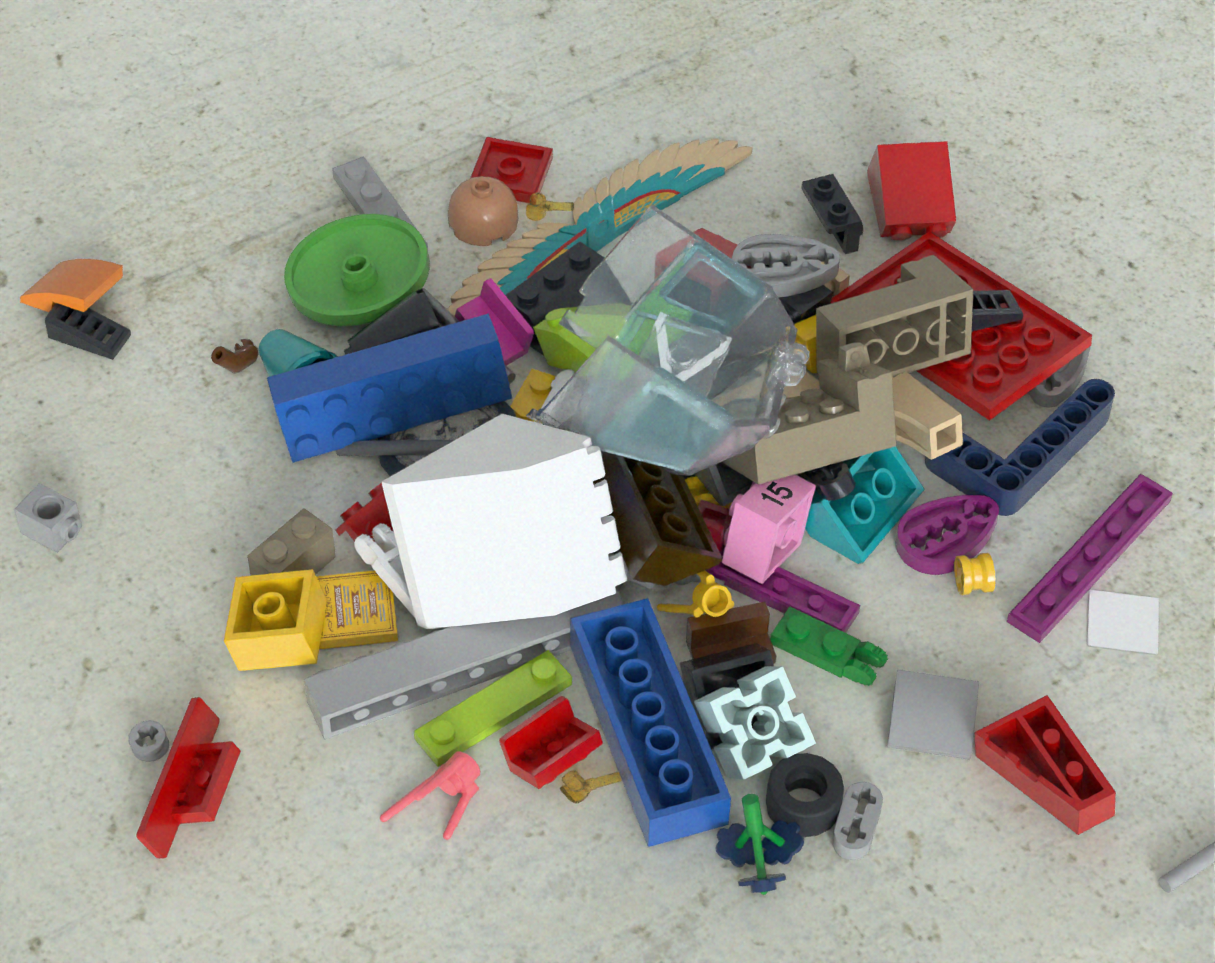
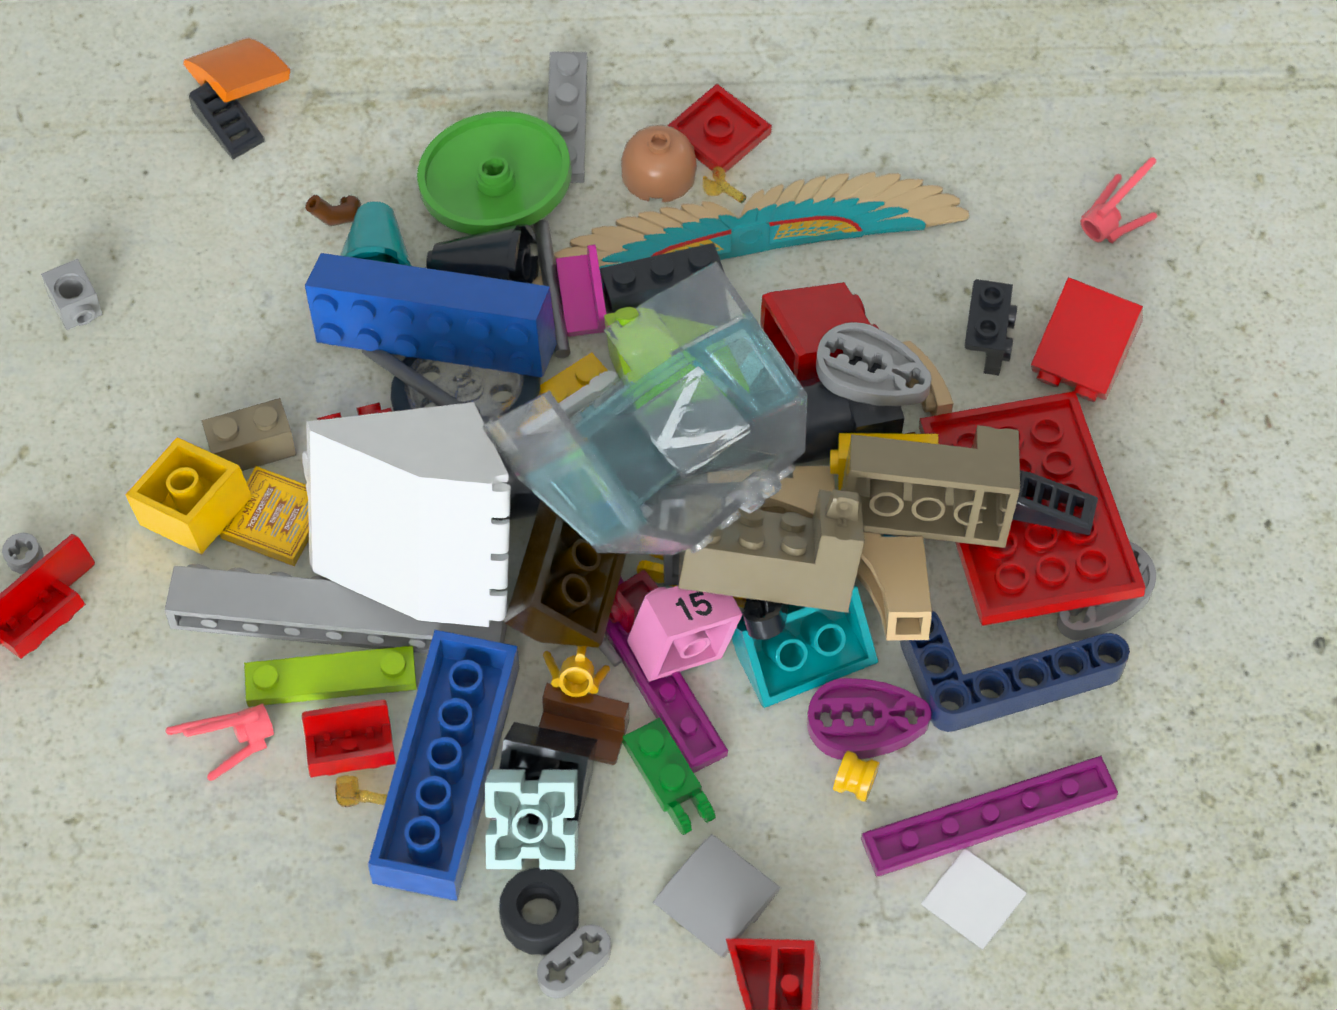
camera: 30 degrees right, 10 degrees up
(744, 845) = (450, 928): dark blue plant -> none
(857, 109) = (1103, 218): none -> coral plant

